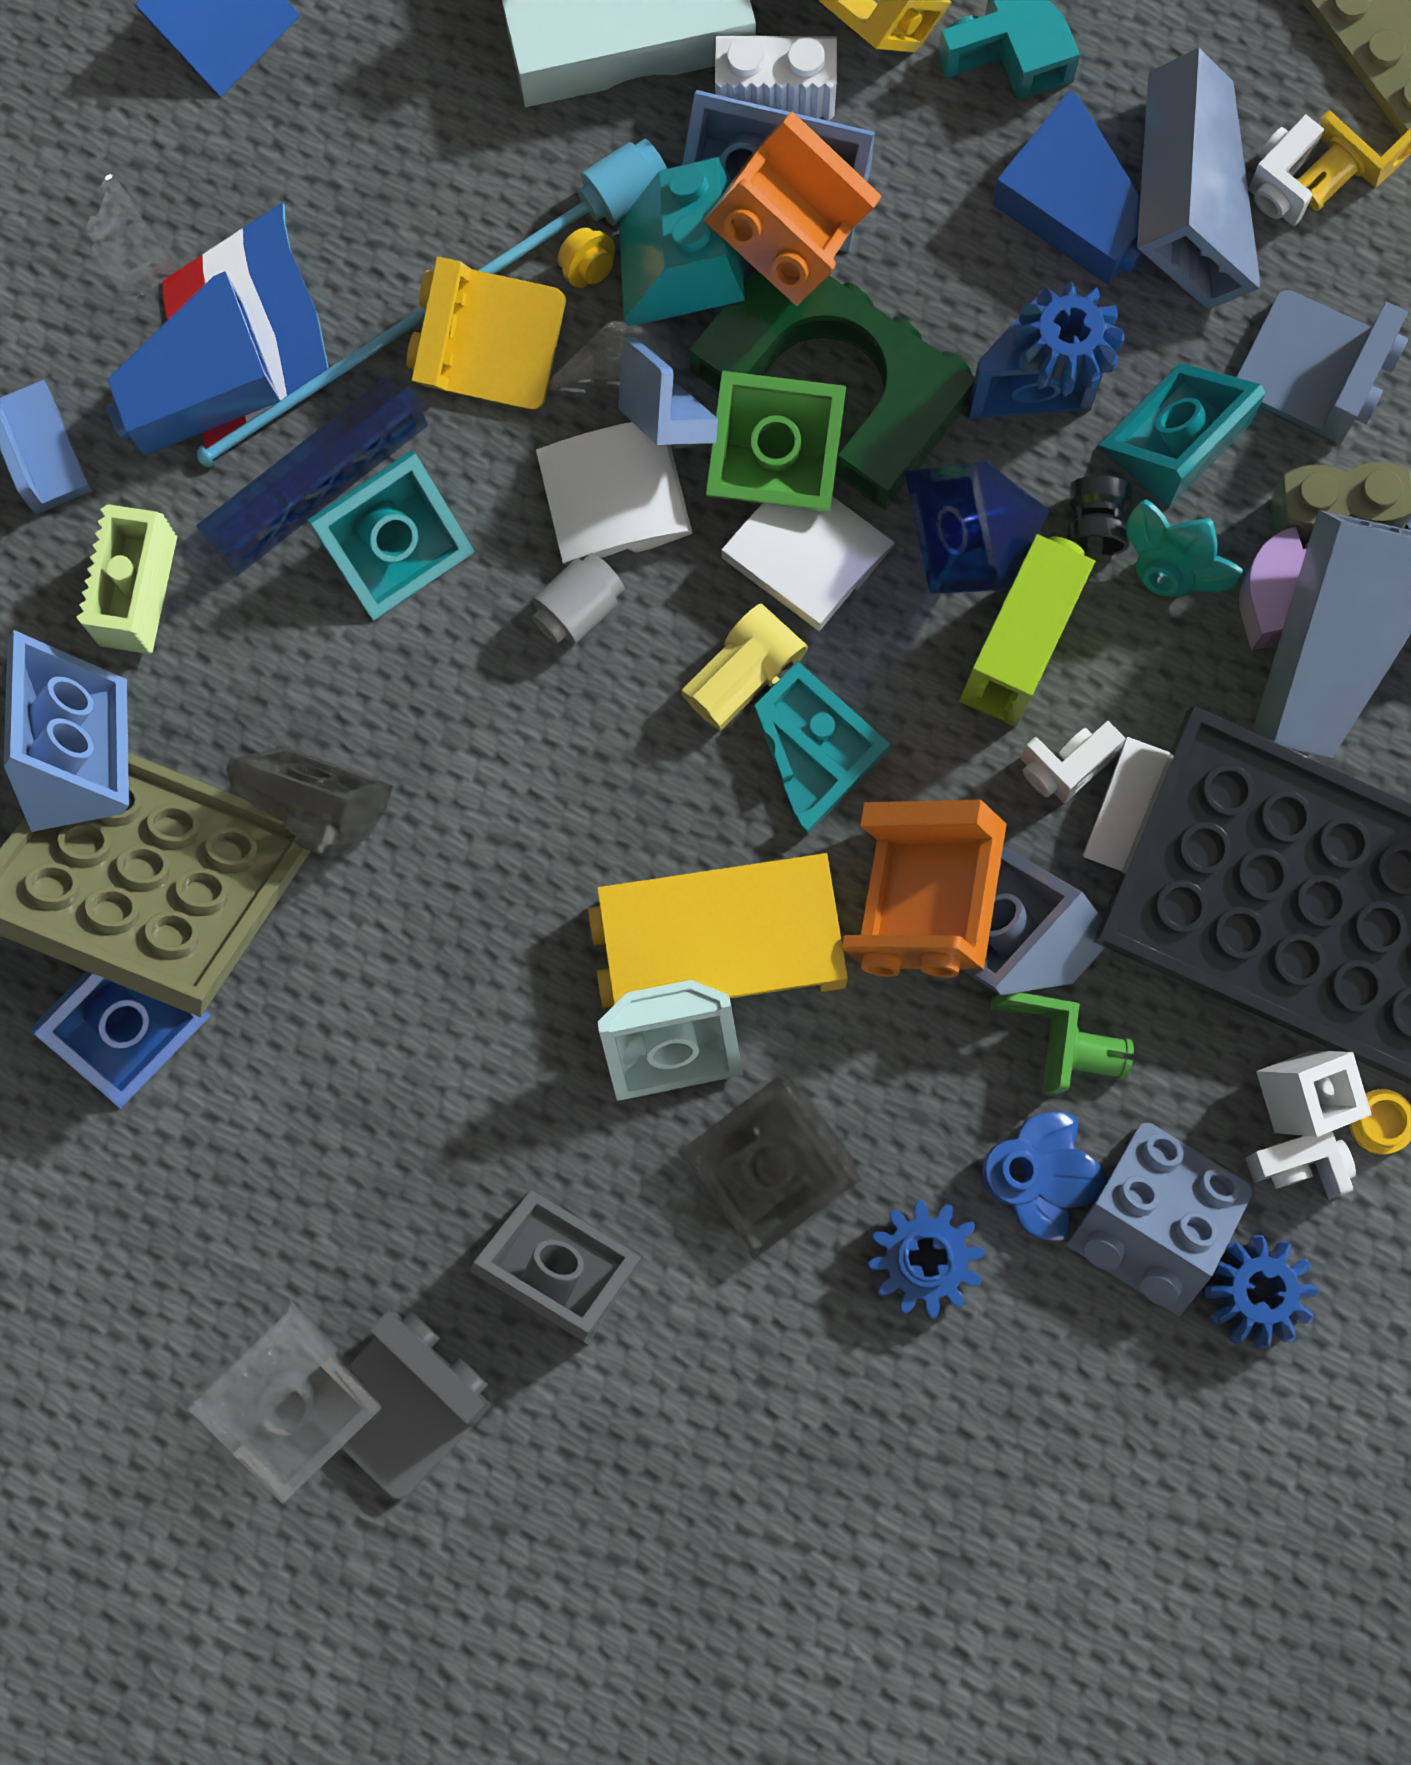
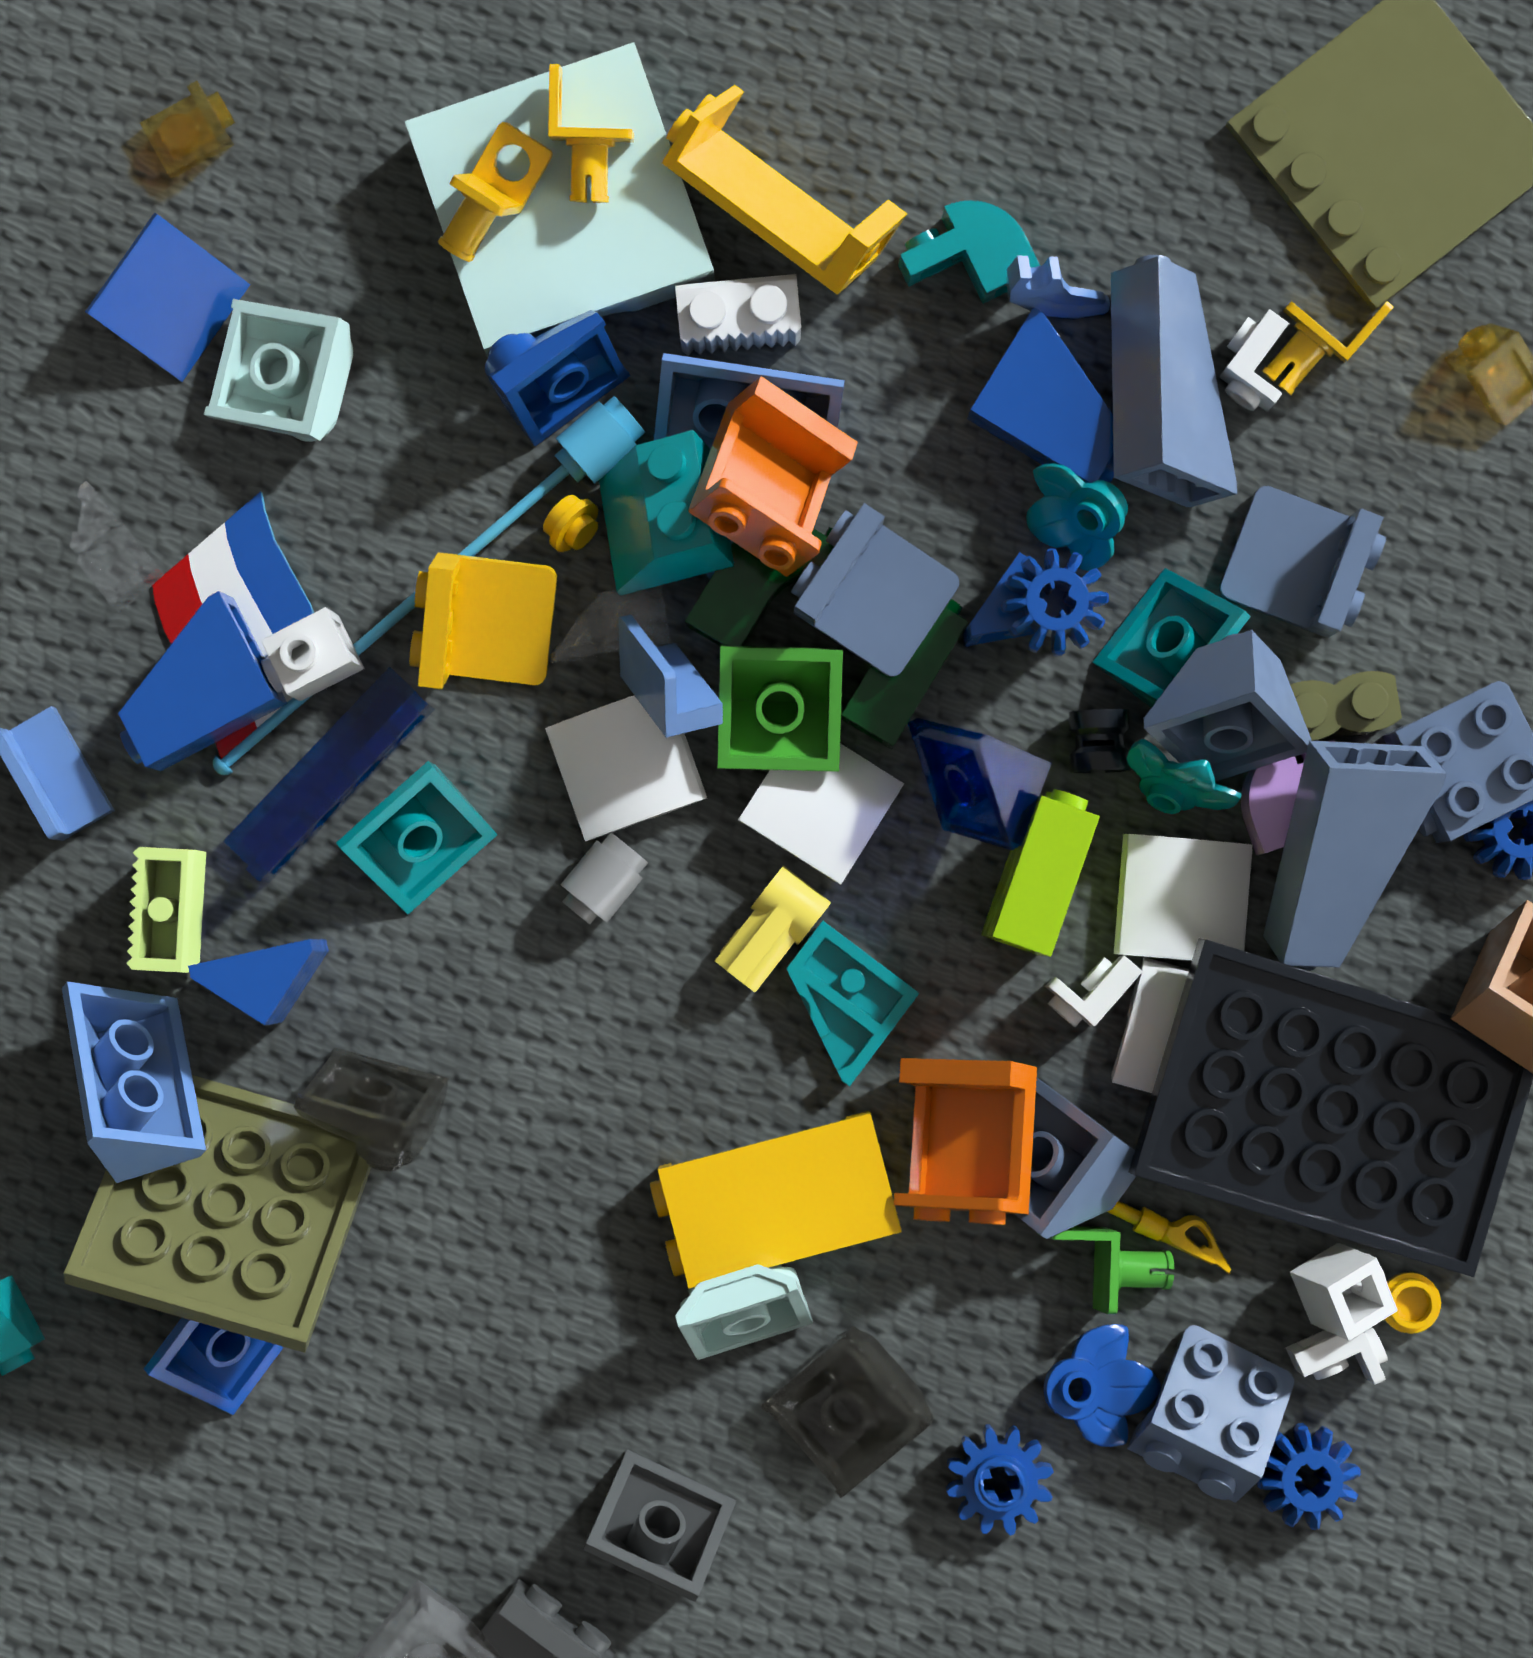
camera: 10 degrees left, 10 degrees up
(218, 647) = (264, 980): none -> blue slope
(308, 348) = (310, 655): none -> white brick
(321, 86) = (282, 370): none -> light aqua slope
(586, 107) = (554, 375): none -> blue slope
(881, 329) = (874, 592): none -> sand blue bracket
(1081, 72) = (1049, 293): none -> medium blue piece
(1092, 267) = (1077, 514): none -> teal plate
(1135, 1024) = (1173, 1233): none -> yellow hand
(1164, 668) = (1180, 893): none -> white slope
(1241, 474) = (1230, 709): none -> sand blue slope

